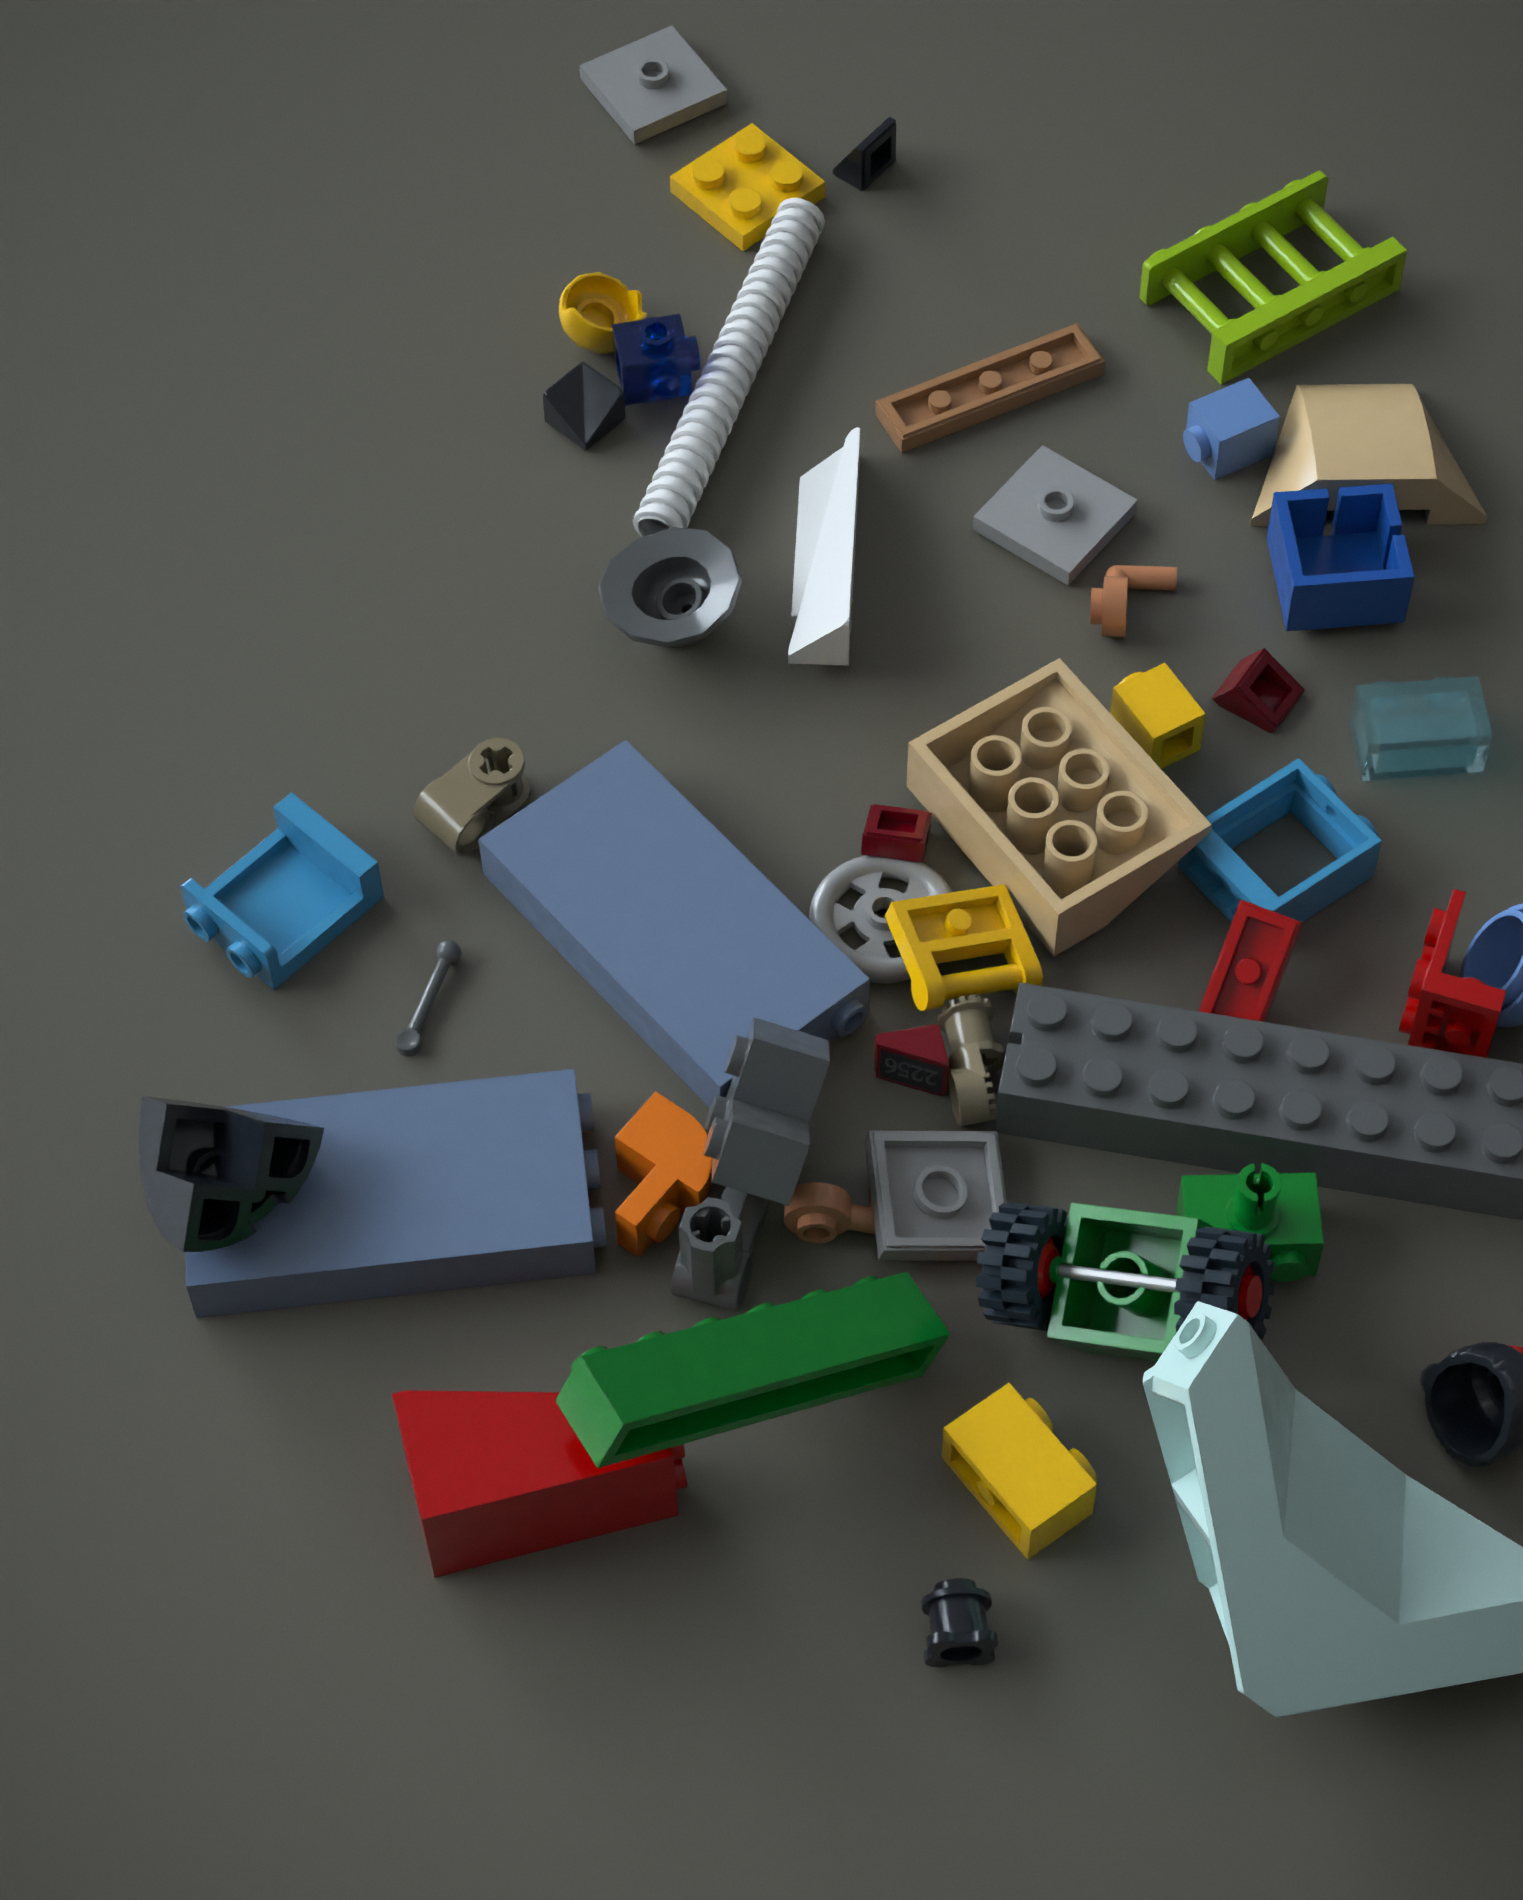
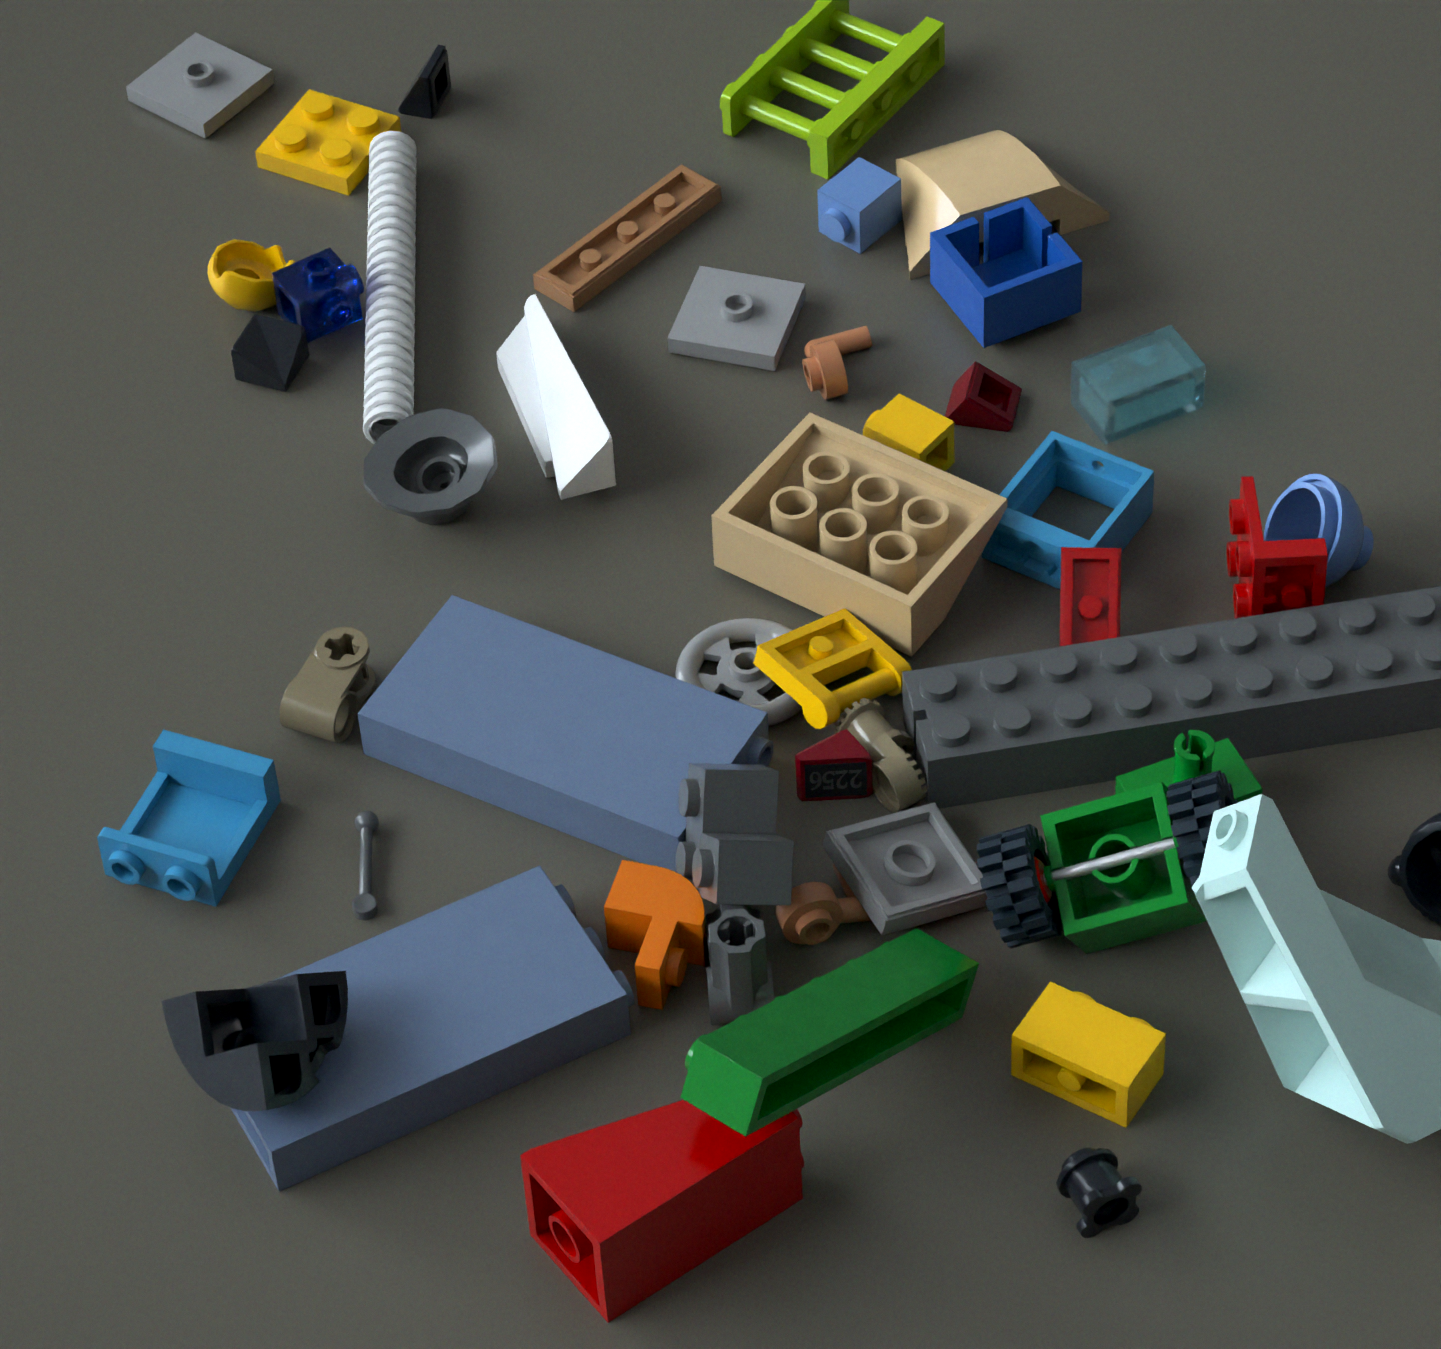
camera: 20 degrees left, 10 degrees down
(896, 833) = (725, 601): dark red tile -> none

